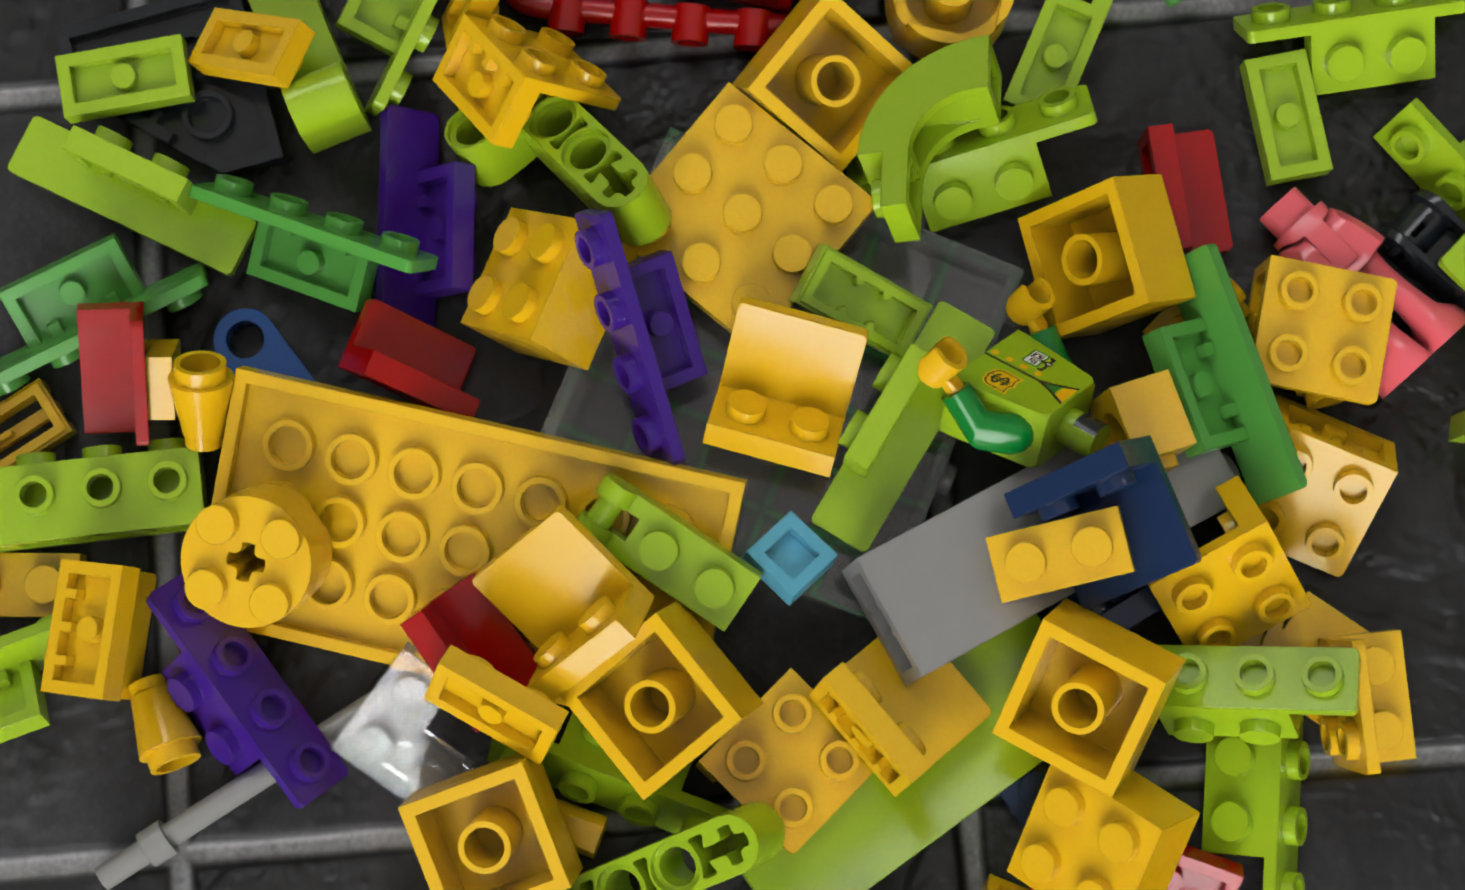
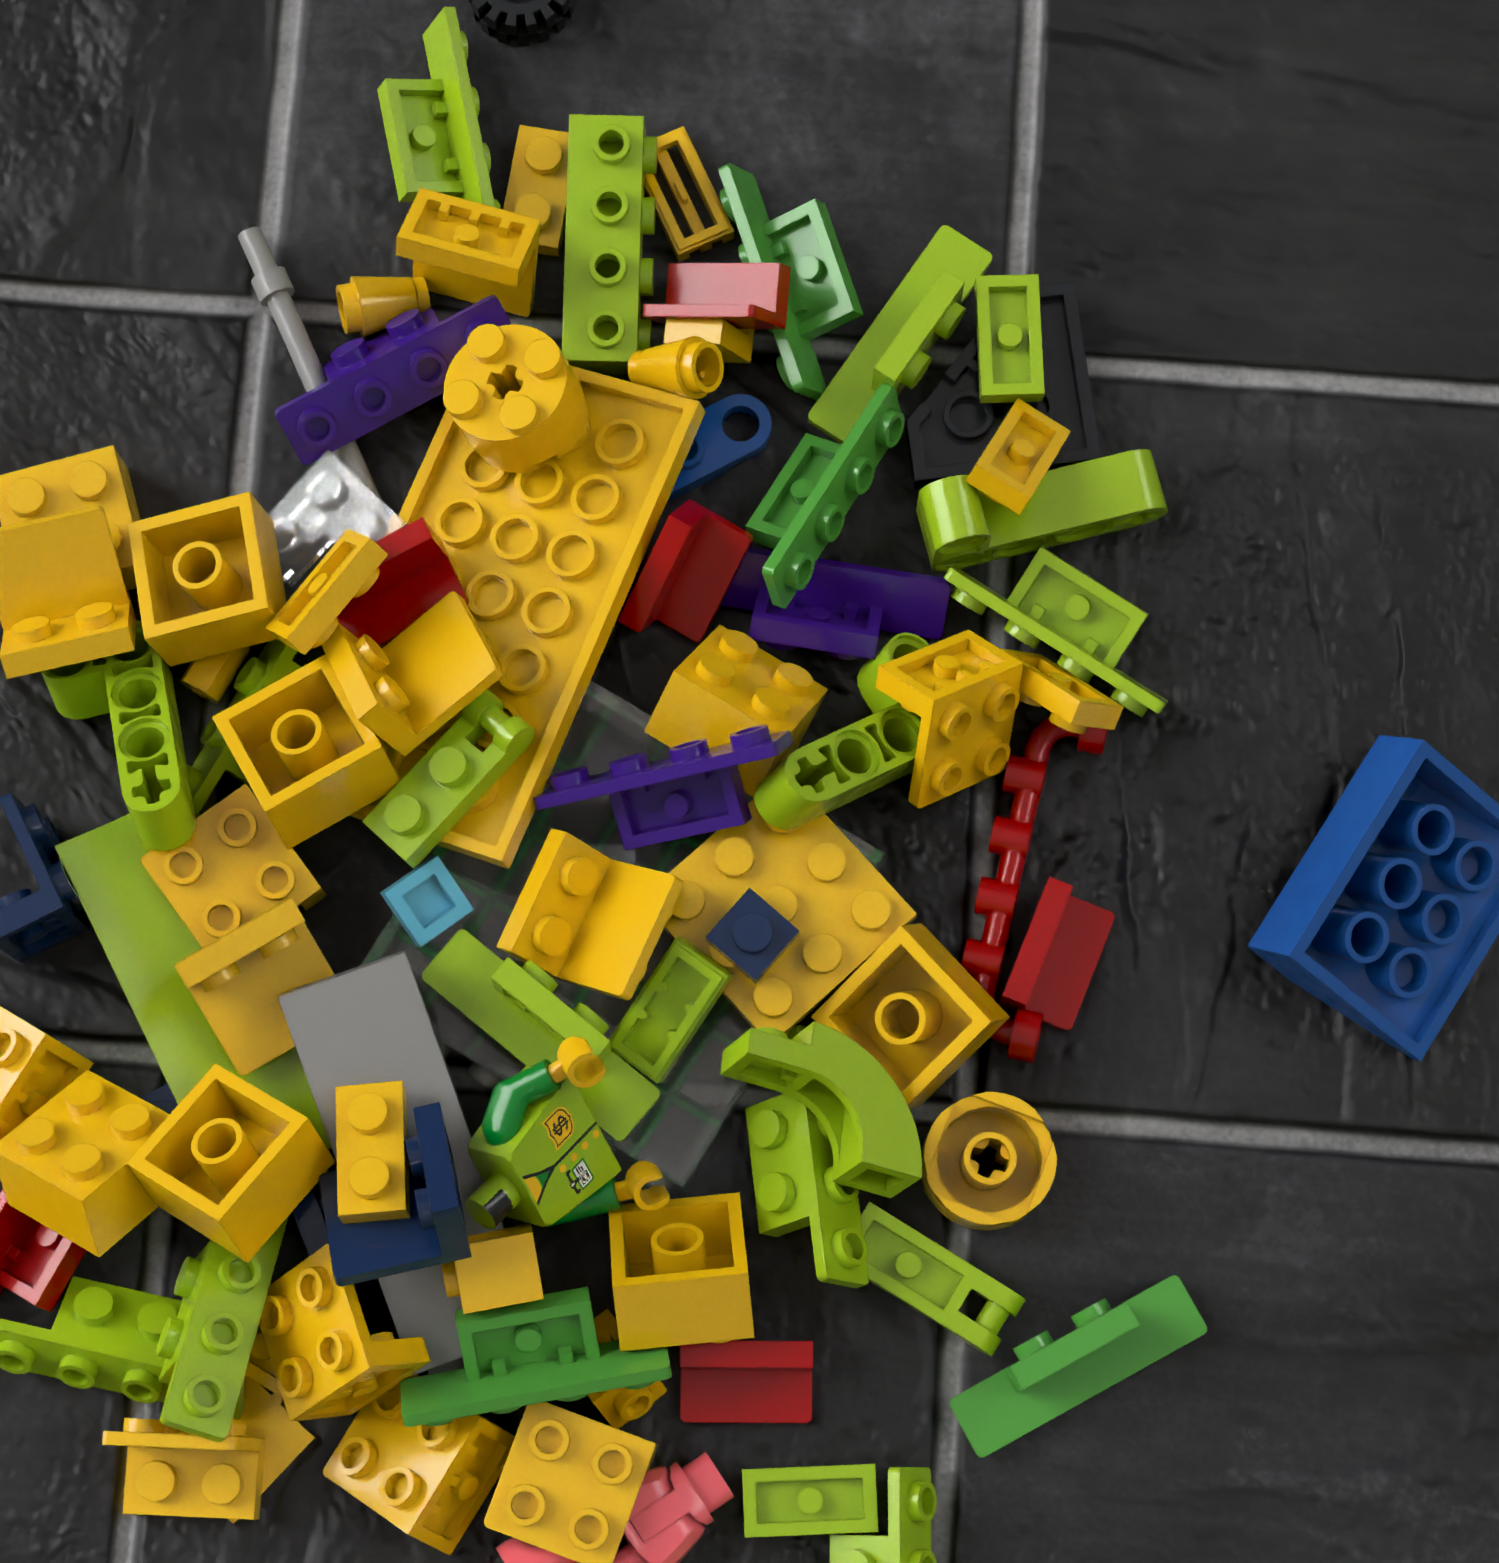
camera: 100 degrees right, 5 degrees down
(780, 228) = (752, 935): none -> dark blue plate

